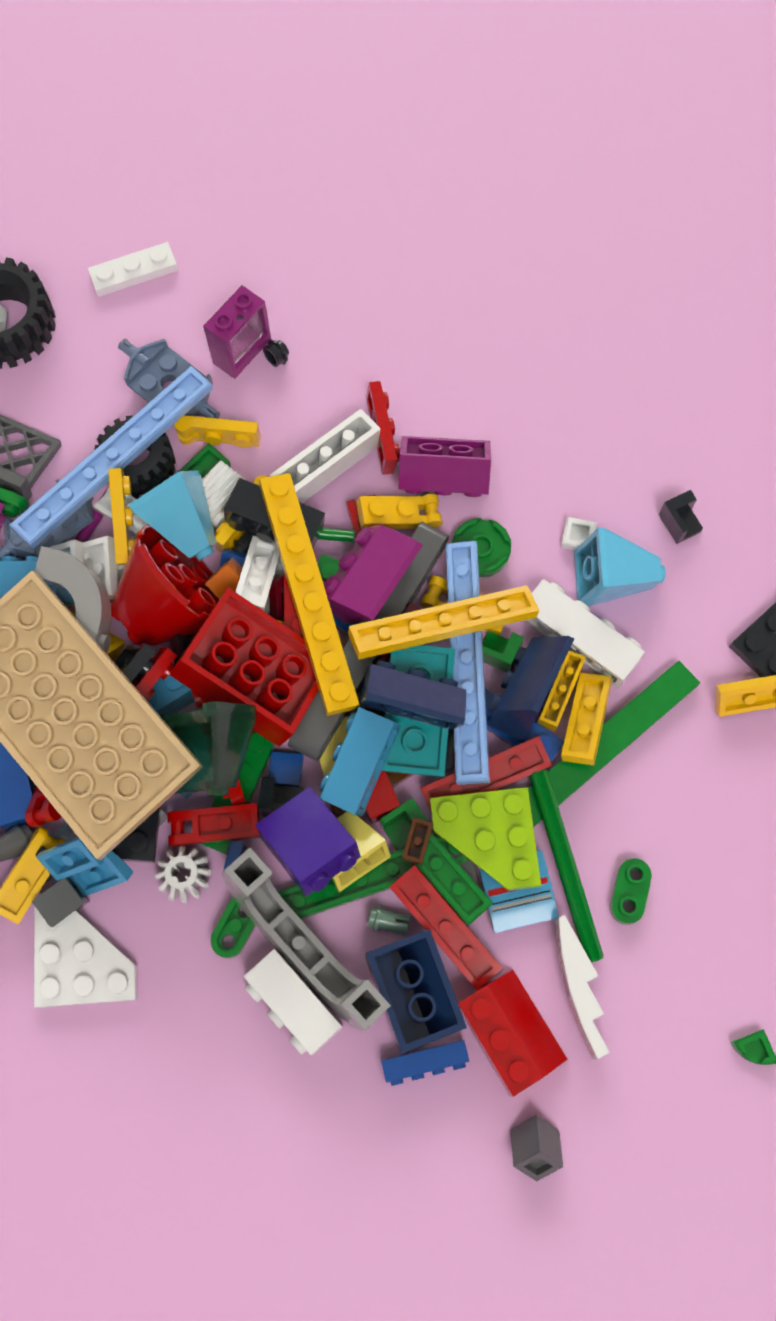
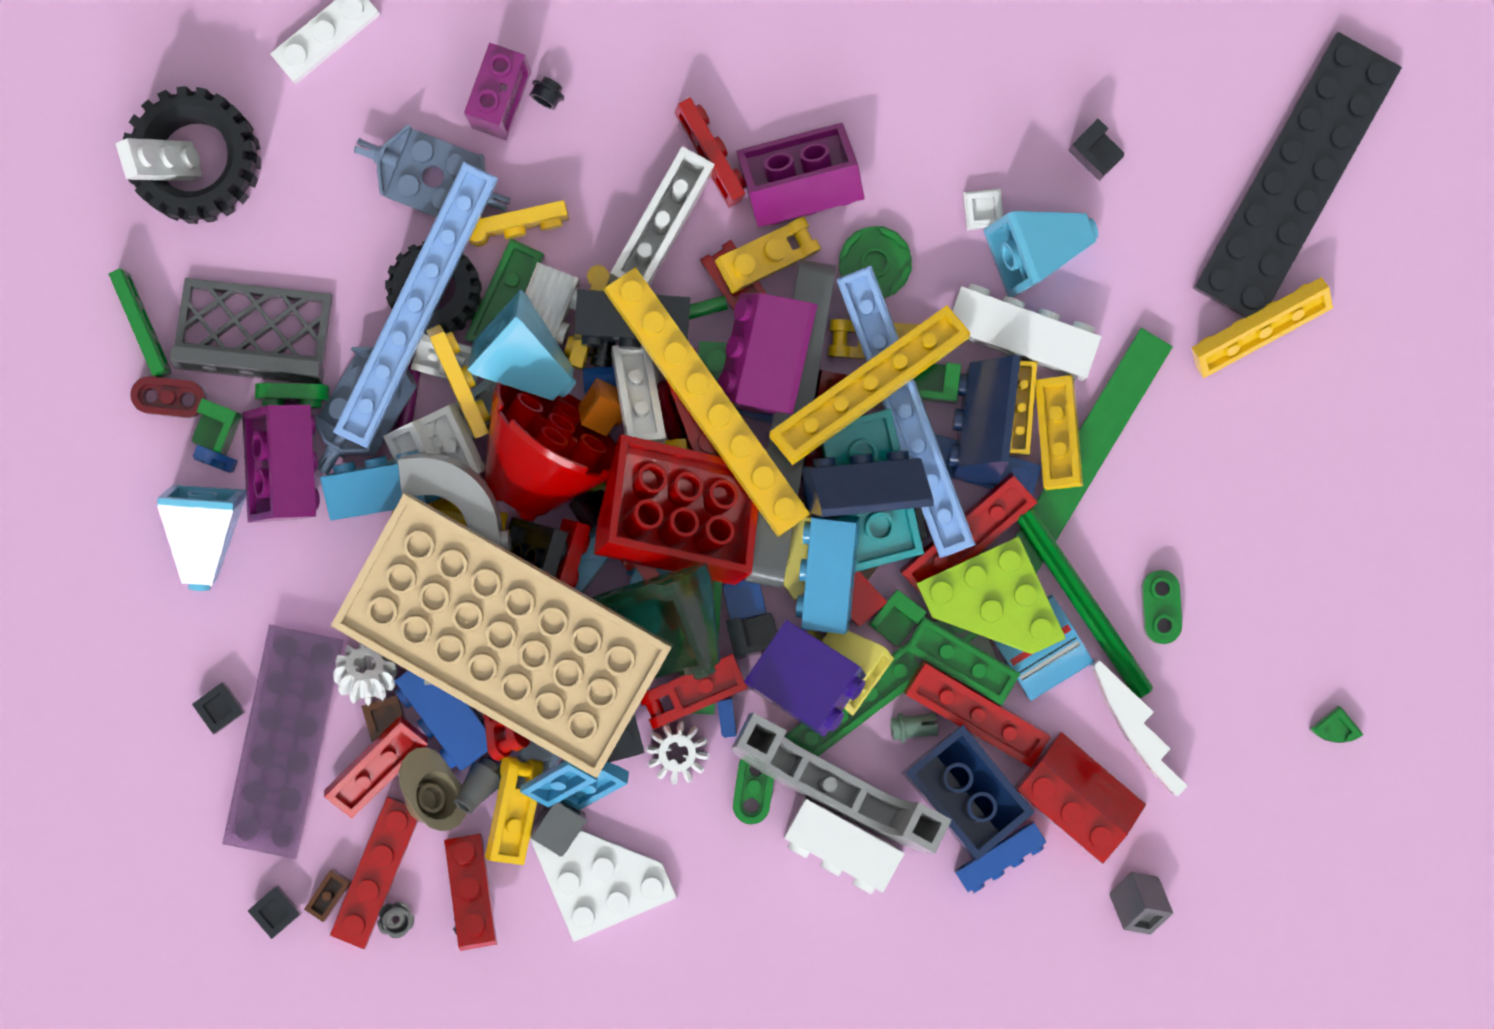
camera: 20 degrees left, 15 degrees up
(417, 841) = (920, 637): reddish brown piece -> none

